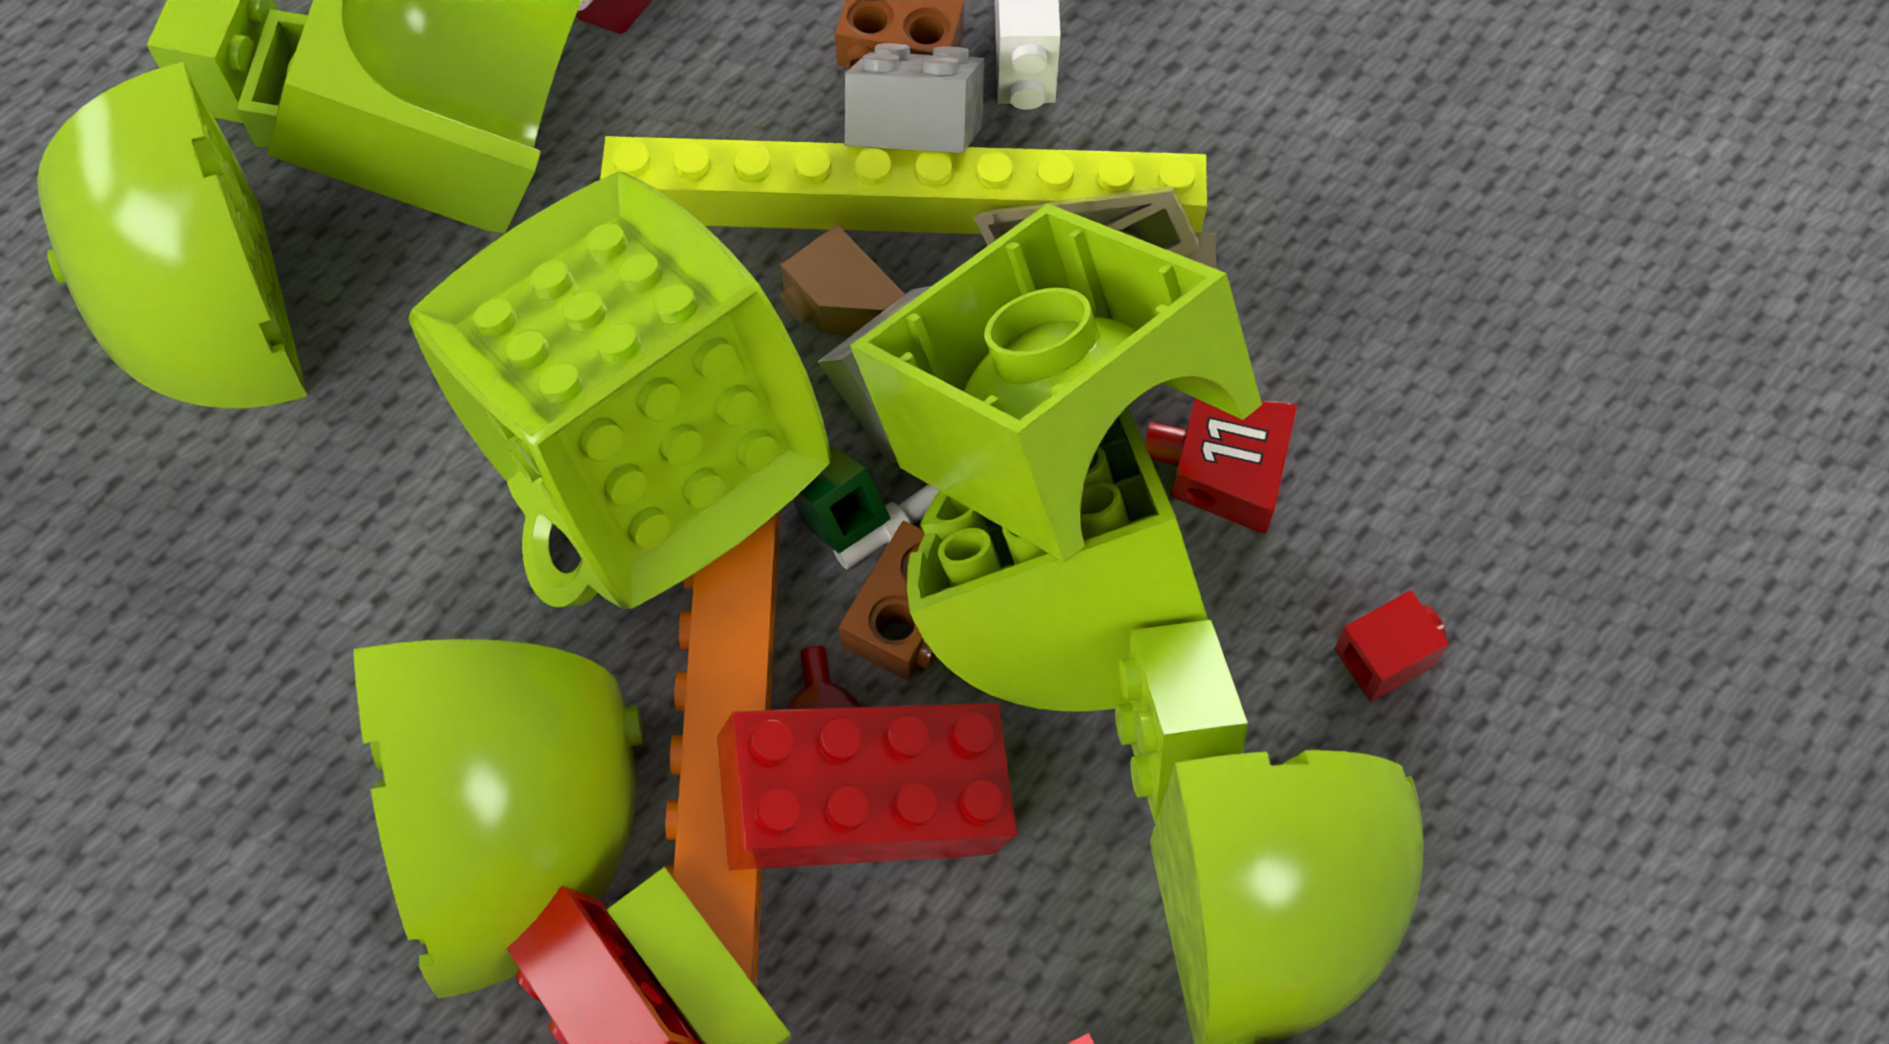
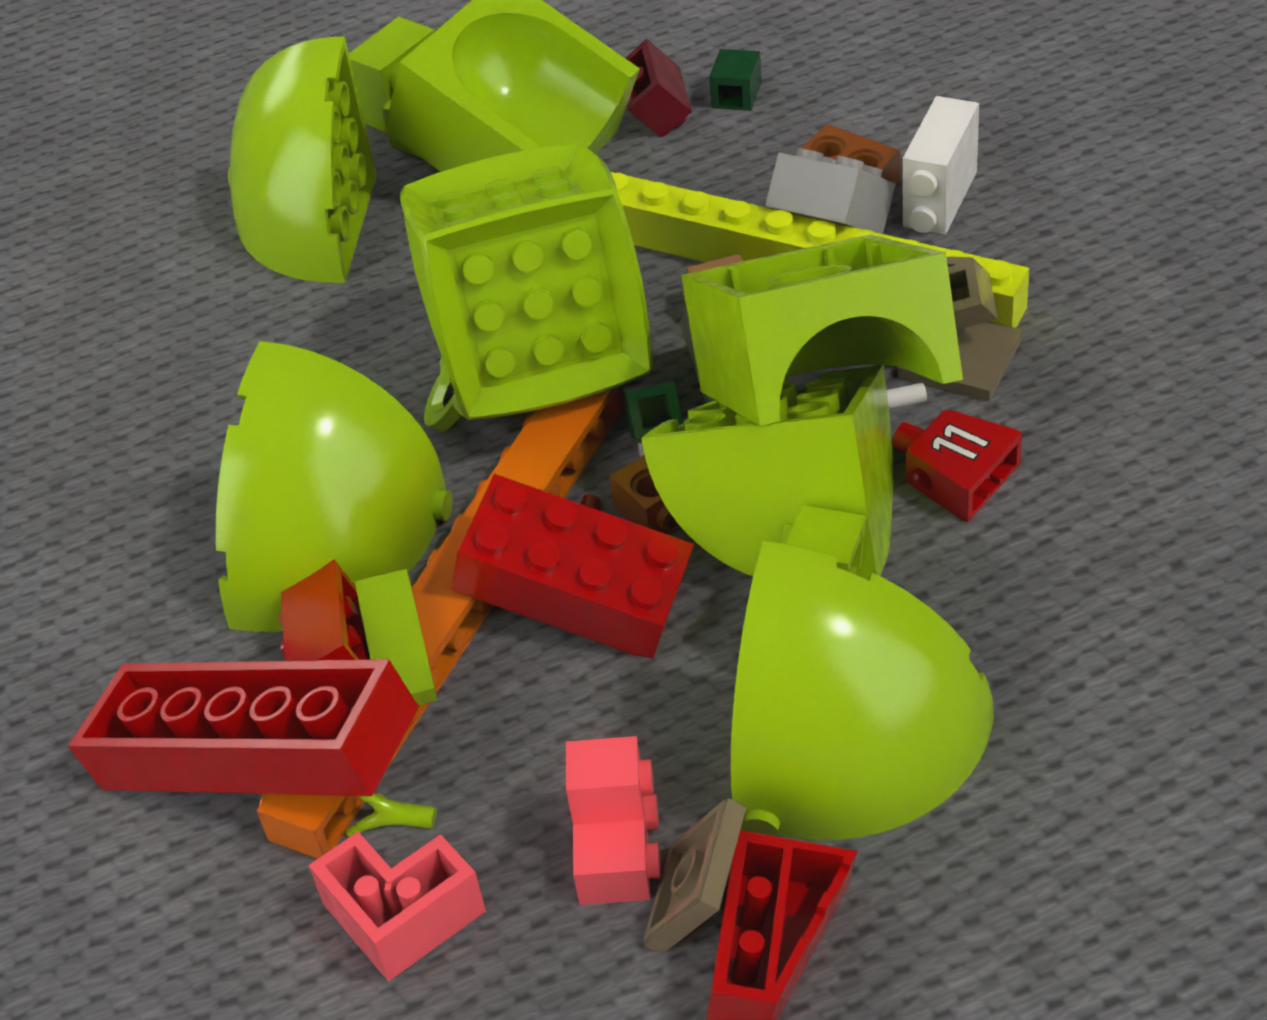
camera: 30 degrees right, 20 degrees down
(1392, 645) = (1022, 602): red brick -> none

